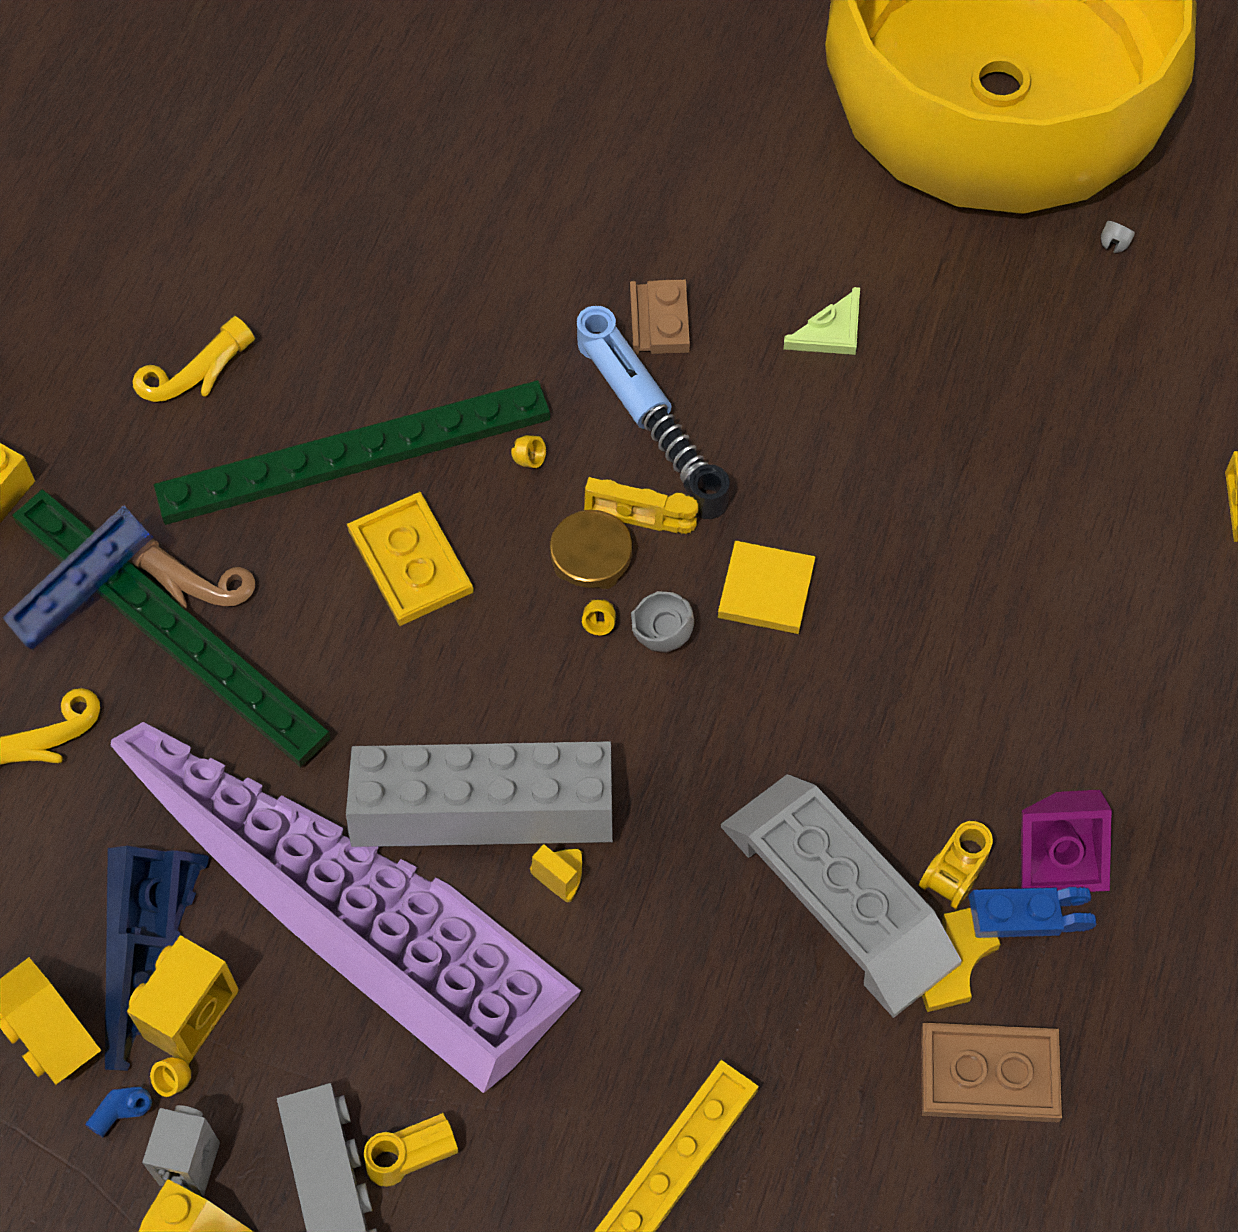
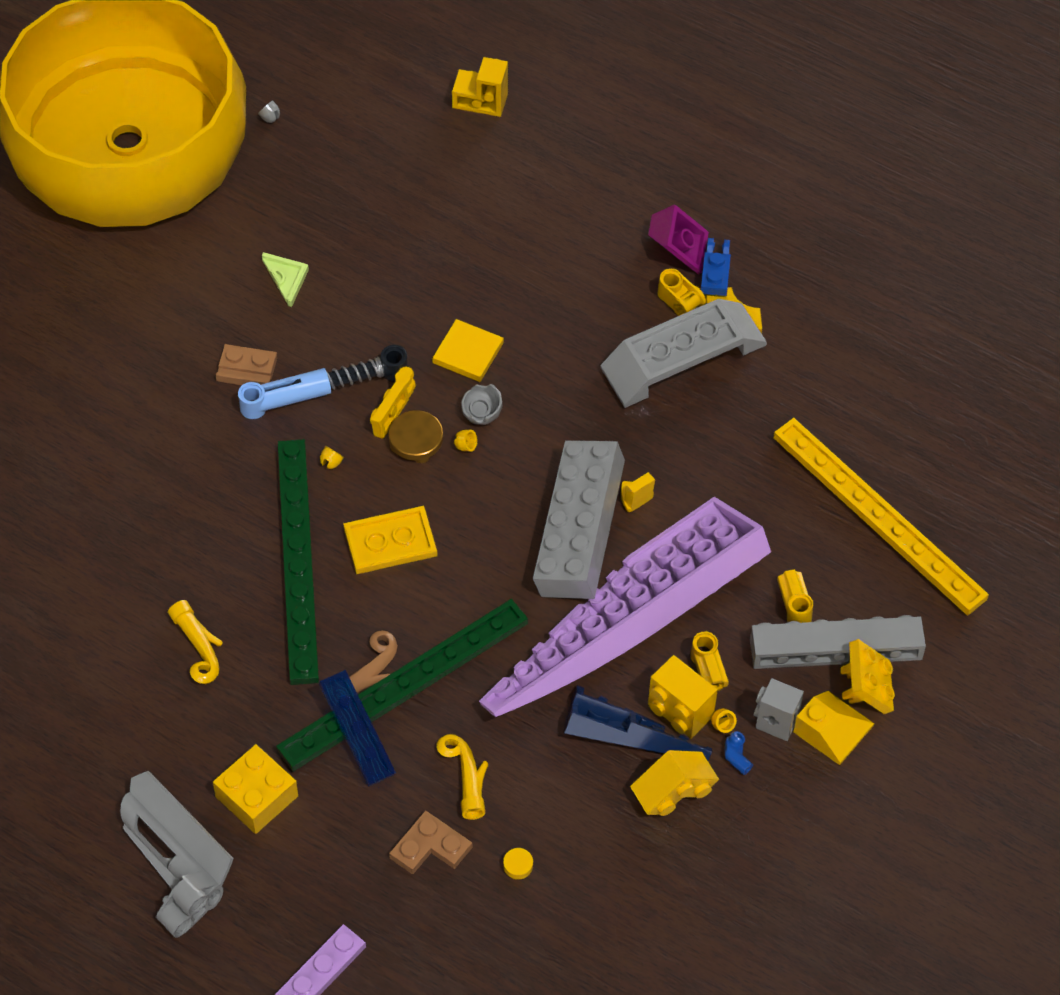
camera: 80 degrees left, 5 degrees down
(262, 1035) = (708, 663): none -> yellow piece
(991, 1072) = (803, 312): medium nougat tile -> none

